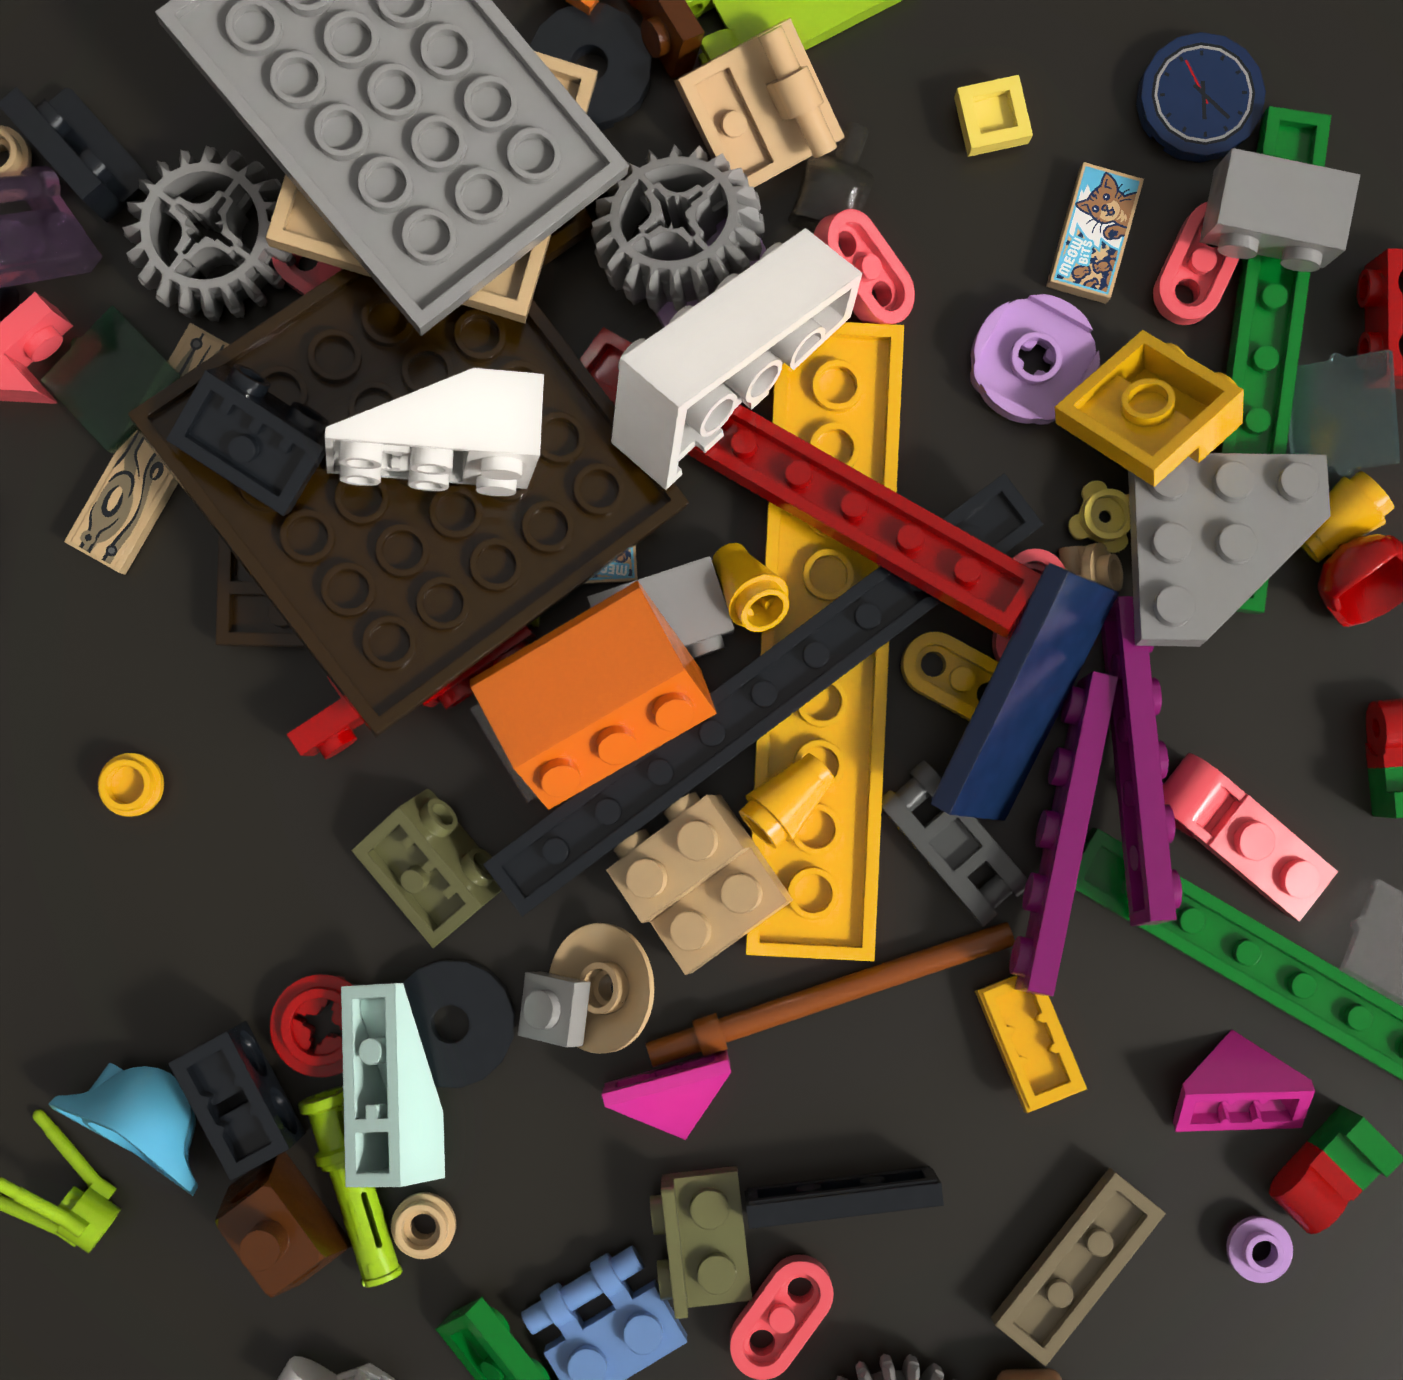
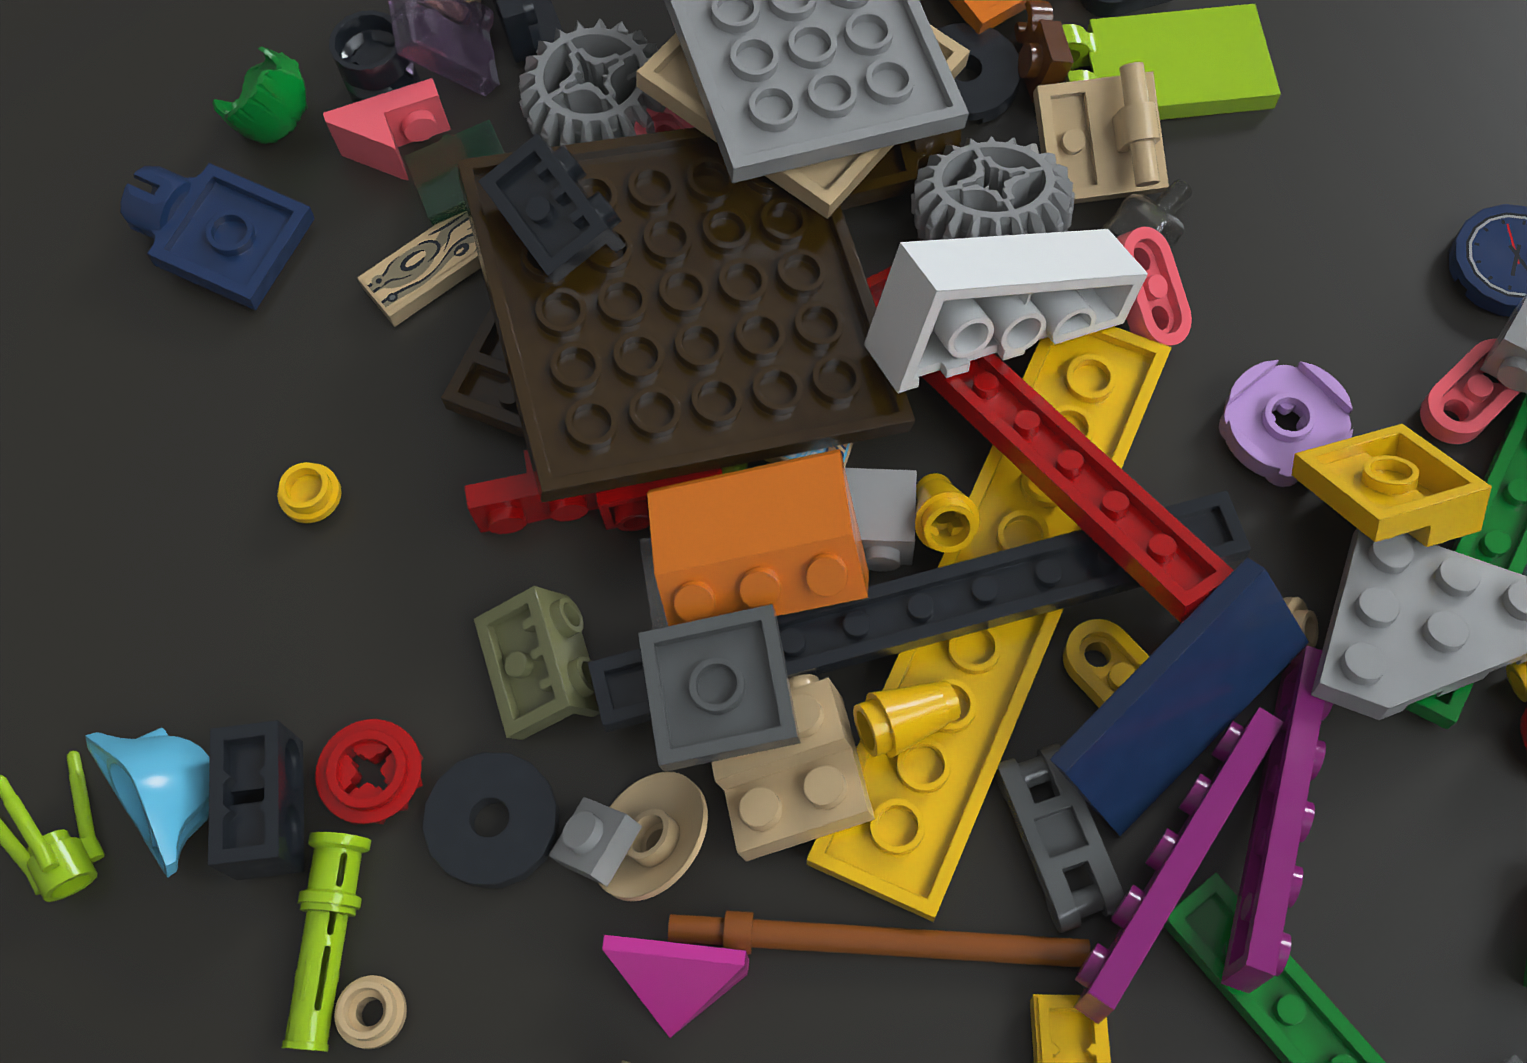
camera: 35 degrees right, 20 degrees down
(279, 1226) = (231, 941): reddish brown torso -> none
(387, 1092) = (399, 853): light aqua slope -> none
(459, 431) = (714, 255): white slope -> none
(615, 851) = (718, 688): none -> dark grey plate
(993, 115) = (1311, 212): light yellow plate -> none
(1087, 522) = (1315, 564): light yellow plate -> none
(1095, 233) = (1378, 337): tile -> none
(1246, 837) = (1377, 948): coral plate -> none

